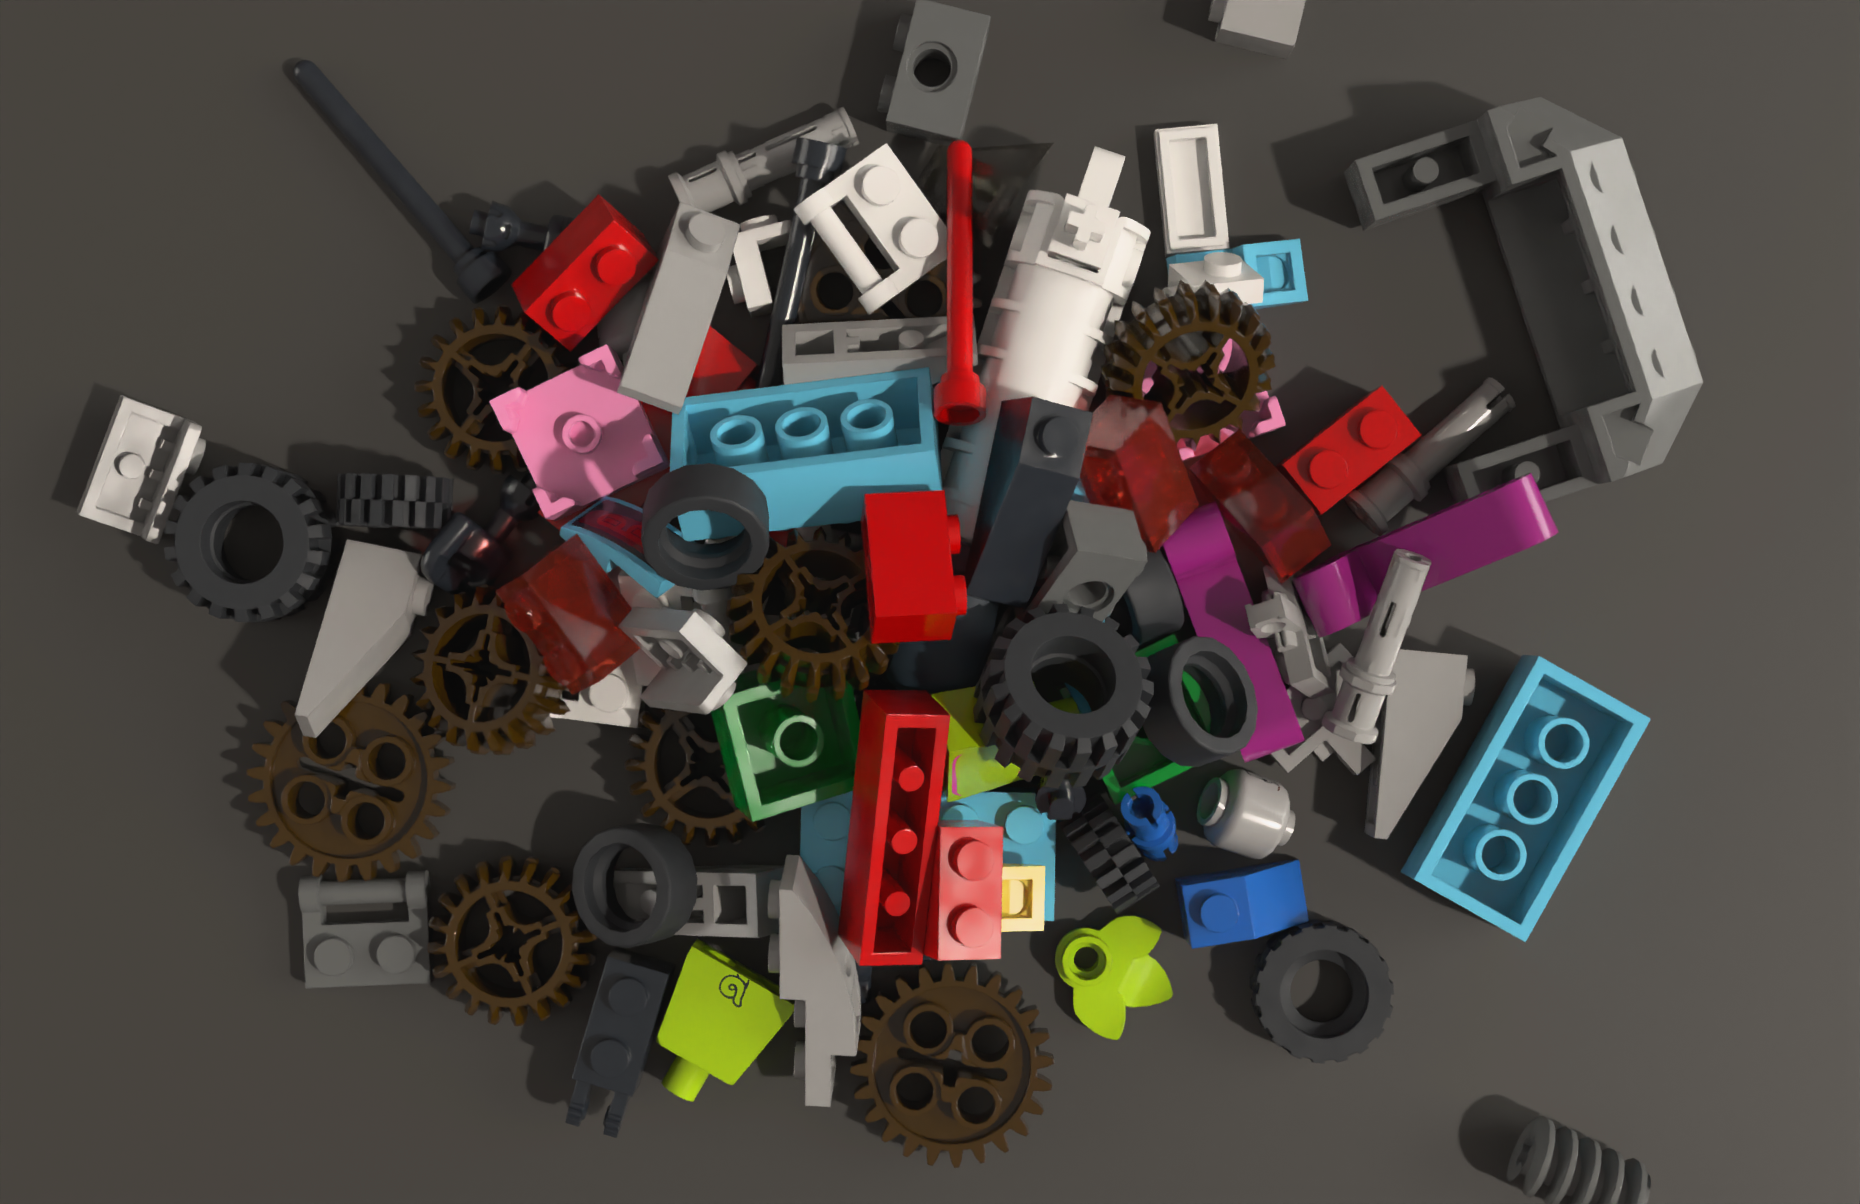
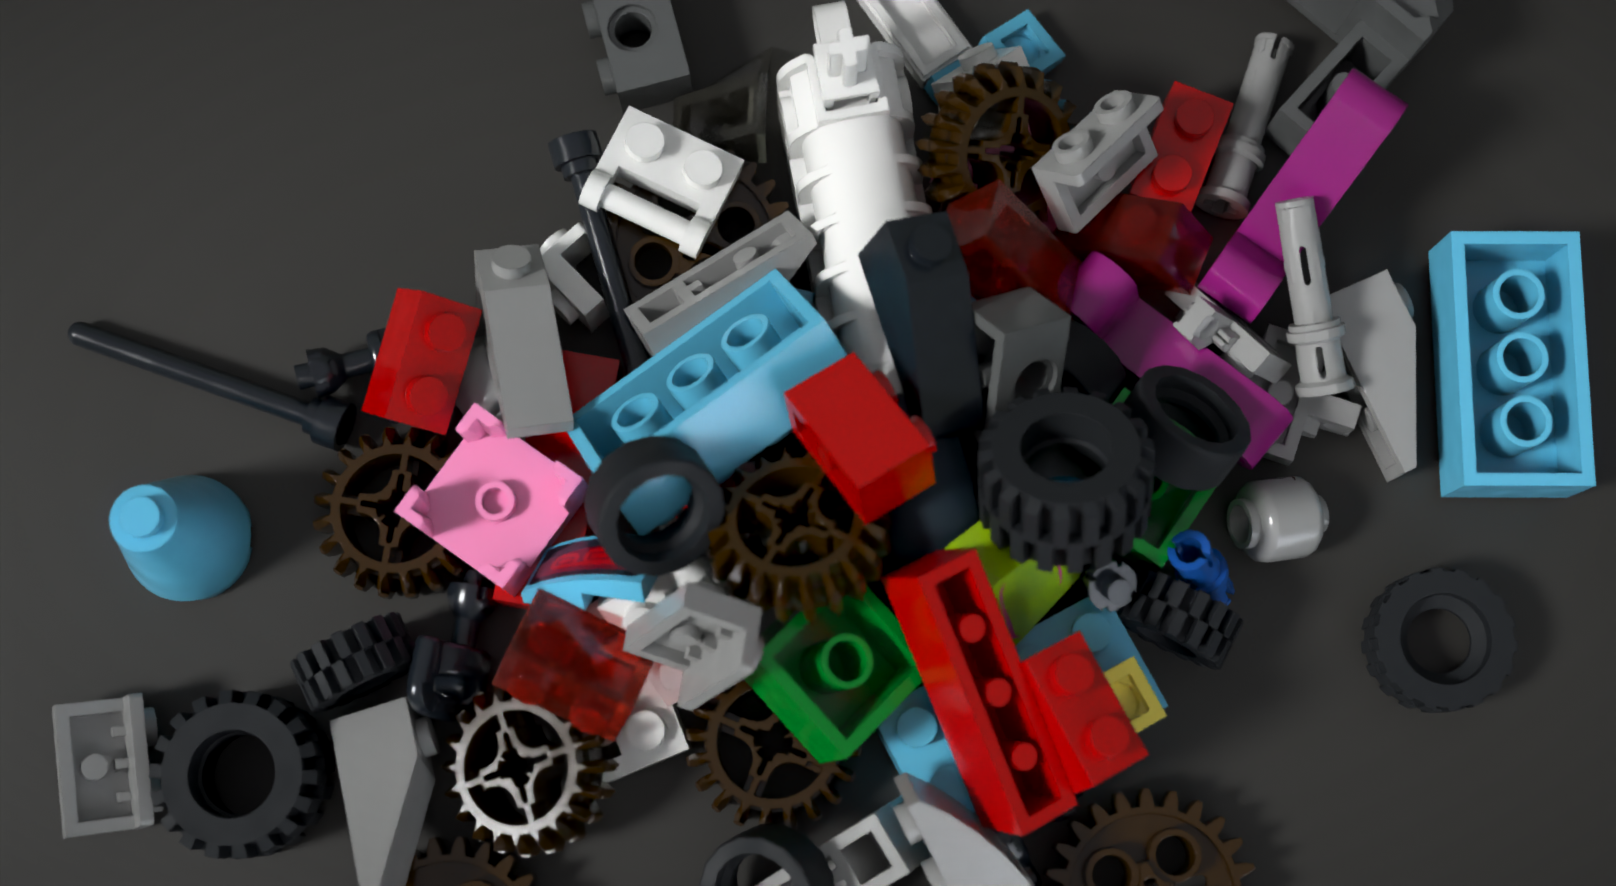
camera: 30 degrees left, 10 degrees down
(307, 307) = (183, 536): none -> medium azure cone
(735, 176) = (512, 215): light grey pin -> none
(959, 395) = (817, 269): red piece -> none
(1120, 976) = (1251, 731): lime plate -> none
(1241, 903) = (1318, 603): blue slope -> none
(1265, 424) = (1097, 158): none -> light grey bracket

